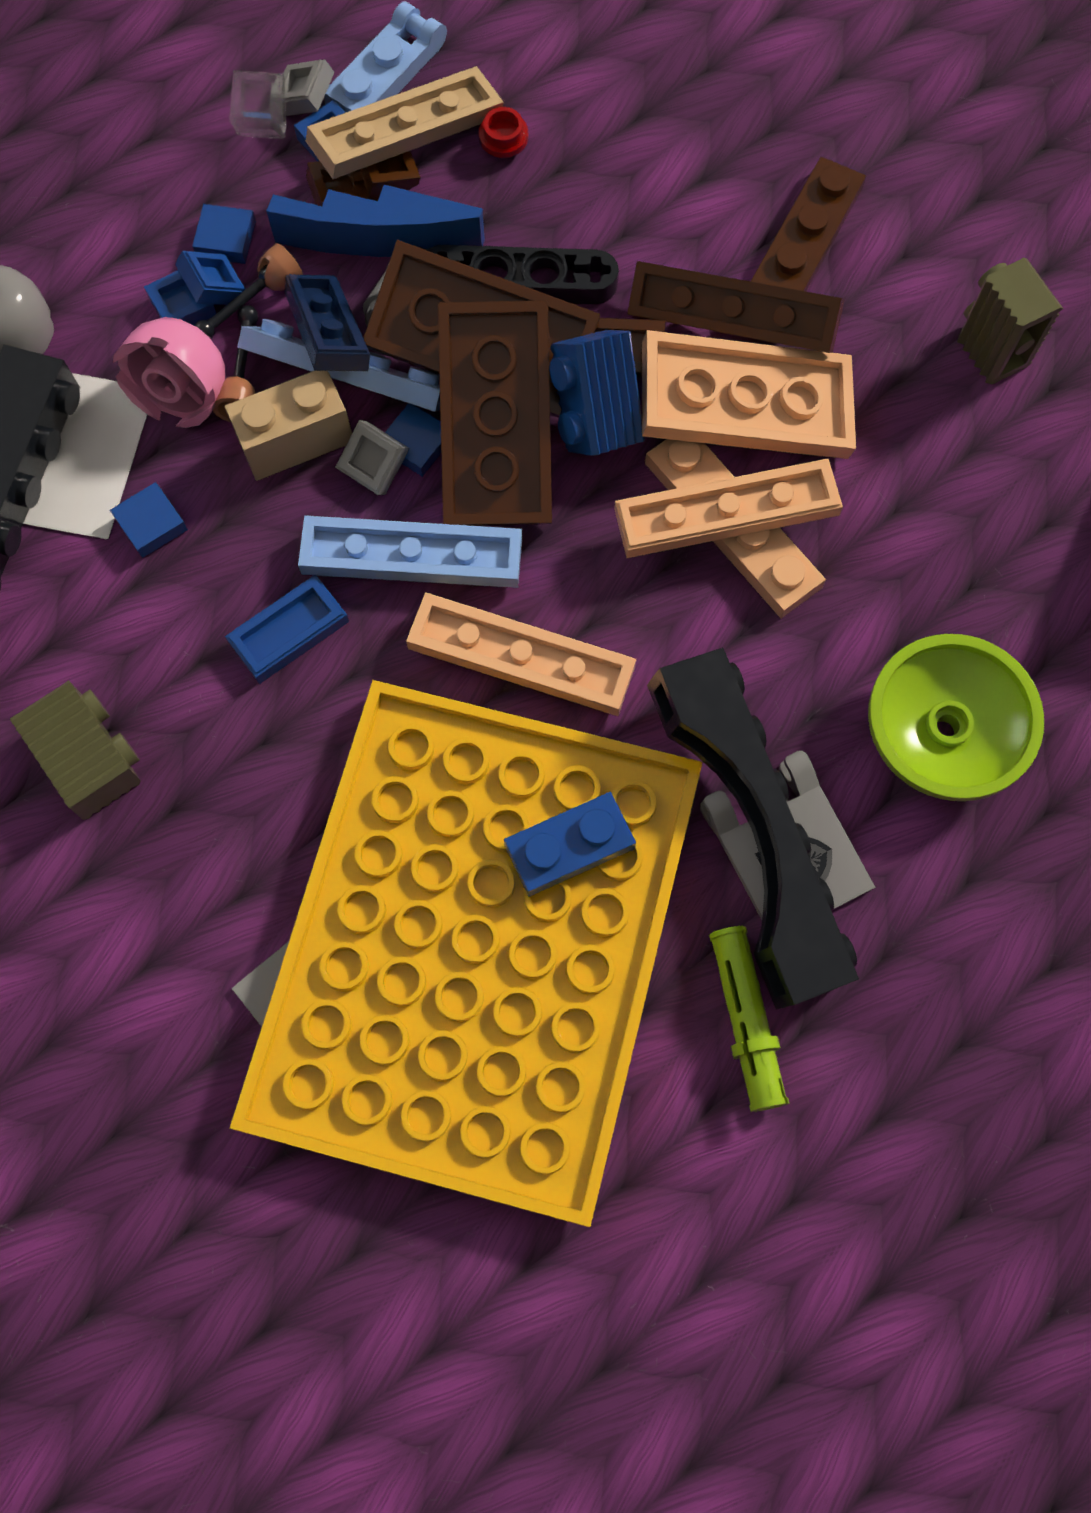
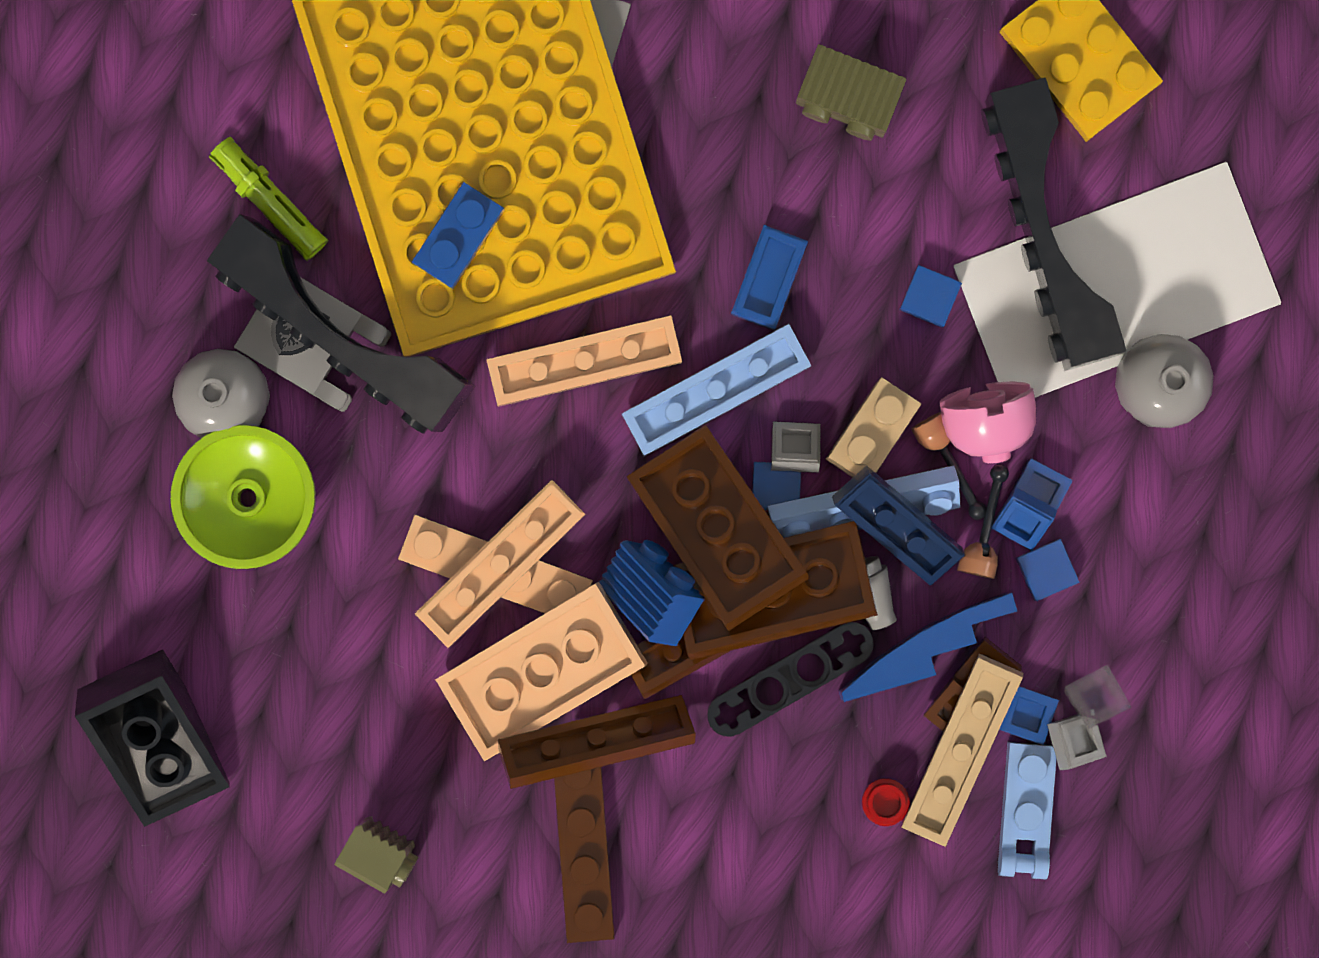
camera: 145 degrees right, 15 degrees up
(919, 845) = (220, 392): none -> light grey cylinder

